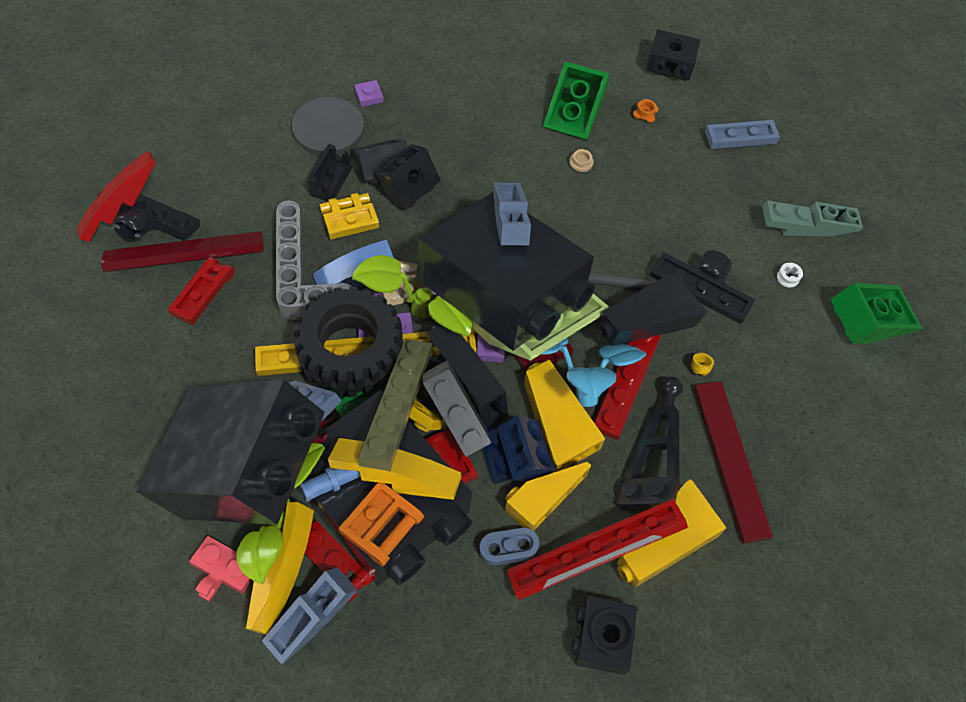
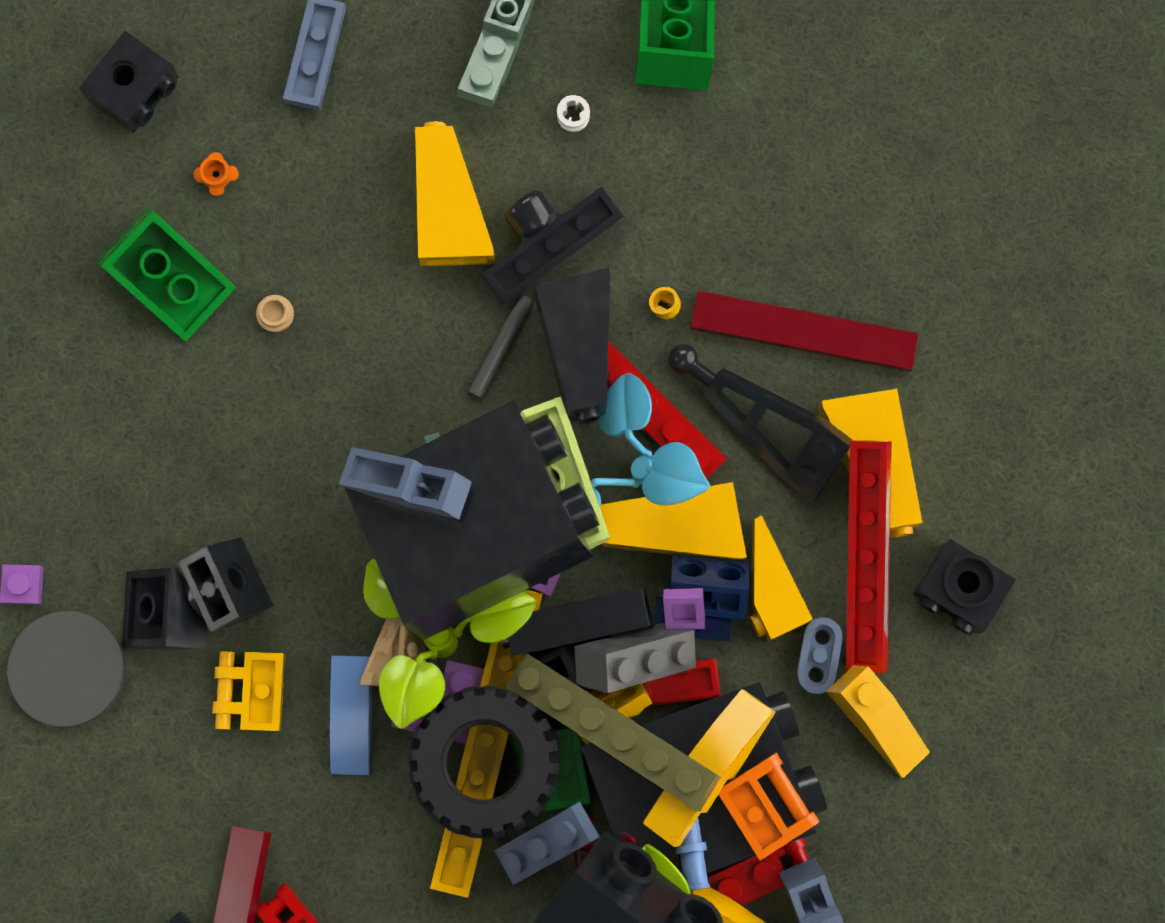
camera: 65 degrees left, 20 degrees up
(290, 246) = (321, 797): light grey beam -> none
(329, 174) = (168, 695): black hinge -> none
(478, 605) = (879, 718): none -> yellow slope
(503, 430) = (684, 609): none -> medium lavender plate
(693, 223) = (447, 207): none -> yellow slope

